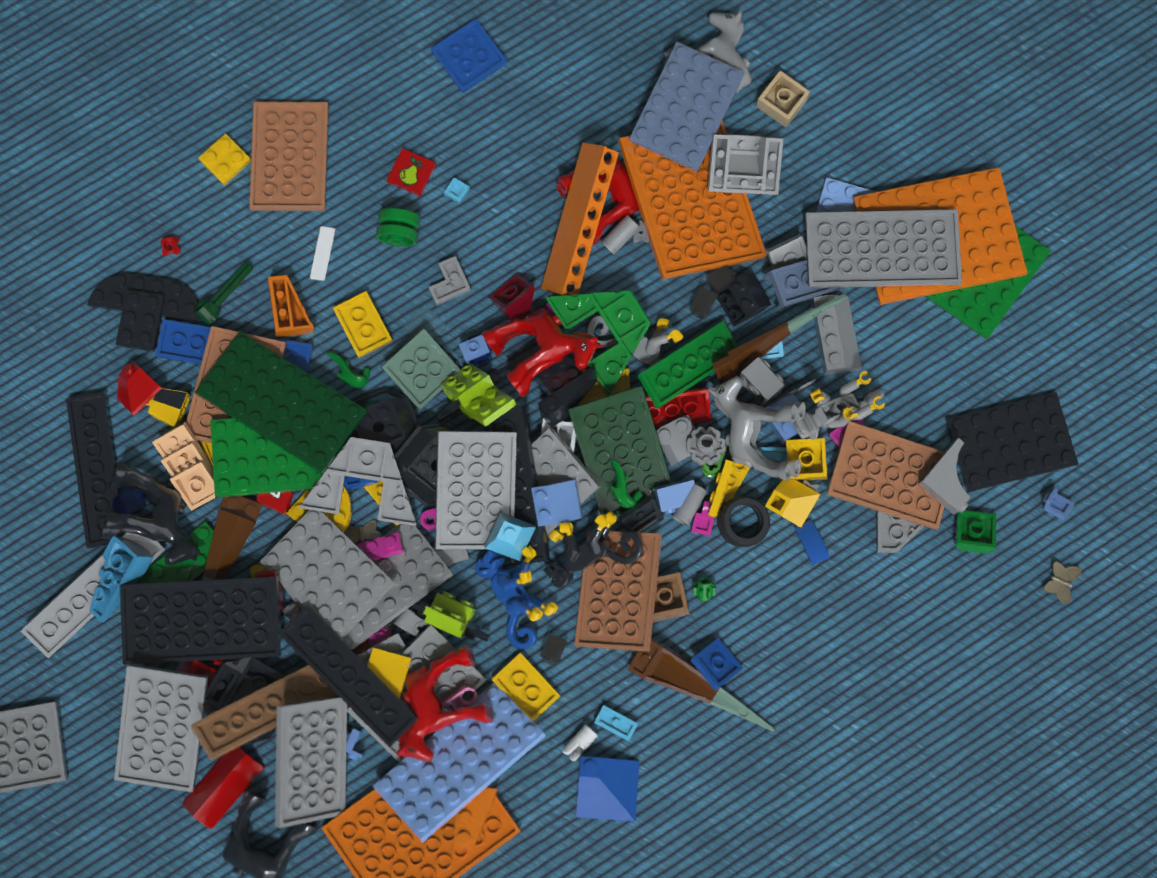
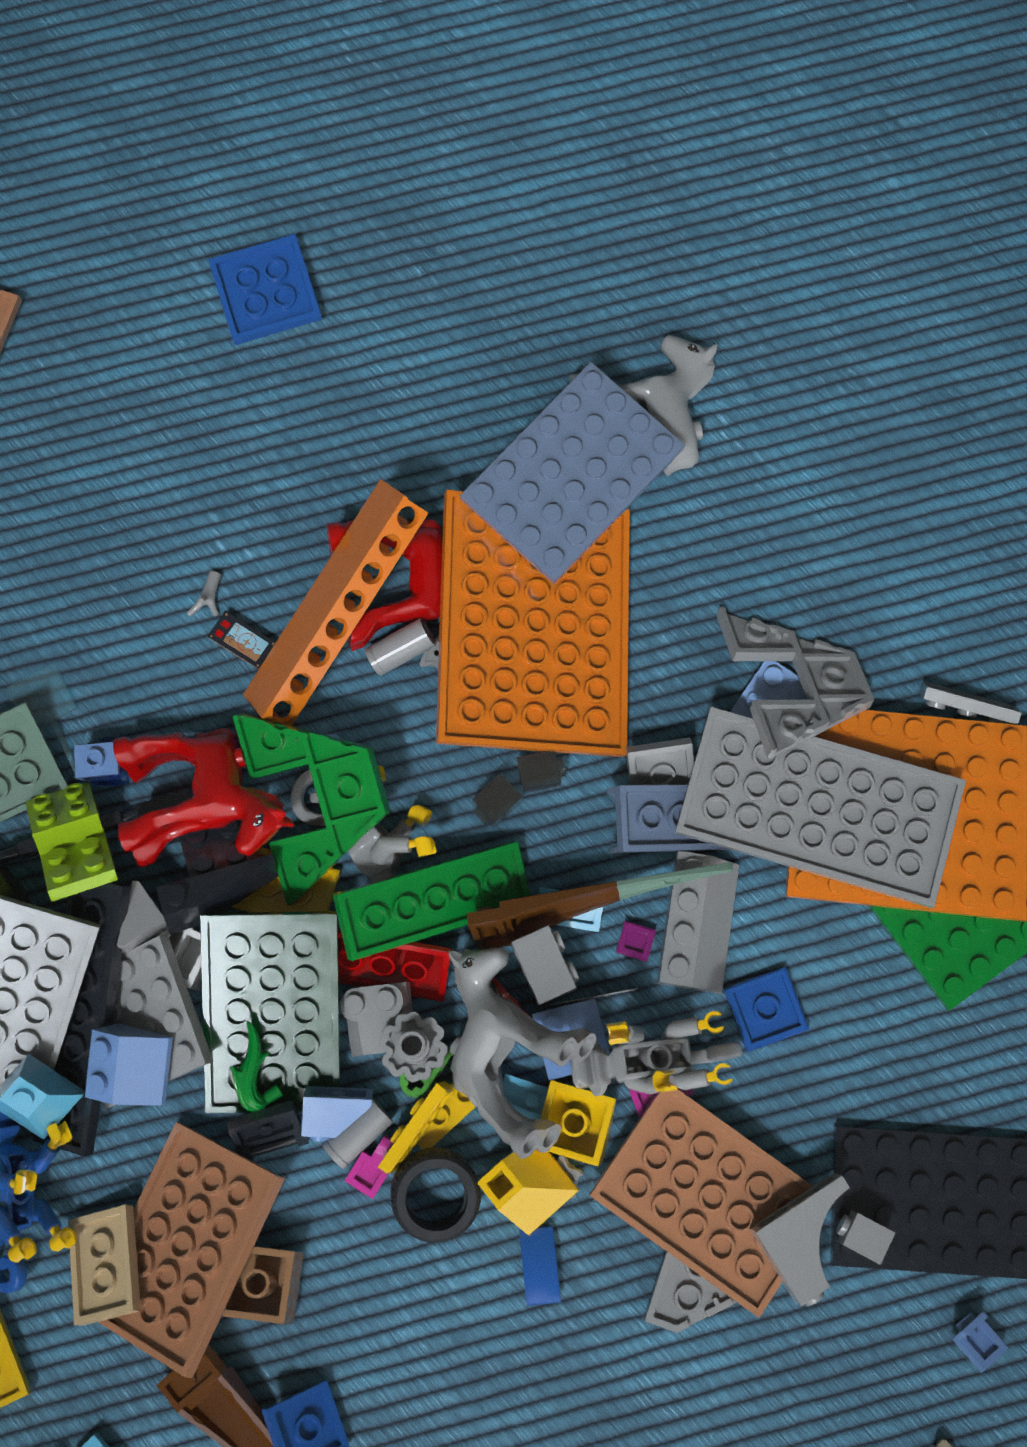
camera: 20 degrees right, 0 degrees up
(397, 227) = (49, 525): green wheel -> none
(411, 172) = (109, 445): red tile -> none
(453, 285) = (110, 645): light grey plate -> none
(457, 190) = (169, 495): medium azure plate -> none
(499, 240) = (207, 595): none -> light grey bar
(514, 297) = (194, 697): dark red slope -> none
(528, 259) = (241, 640): none -> tile
(536, 423) = (142, 920): none -> light grey slope
(553, 650) = (46, 1309): clear smoke brick -> none
(578, 615) = (104, 1266): none -> tan plate
(581, 556) = (144, 1165): black animal -> none
(704, 589) = (331, 1288): green gear -> none
(743, 299) = (564, 815): black slope -> none
(745, 164) = (639, 594): light grey slope -> none
(783, 99) = (738, 507): tan brick -> none
(805, 355) = (635, 941): none -> magenta tile
(863, 176) = (827, 674): none -> light grey wing
(888, 369) = (766, 1009): none -> blue tile
(945, 169) = (969, 704): none -> light grey plate
(975, 532) = (823, 1343): green slope -> none
(980, 468) = (864, 1236): none -> light grey brick

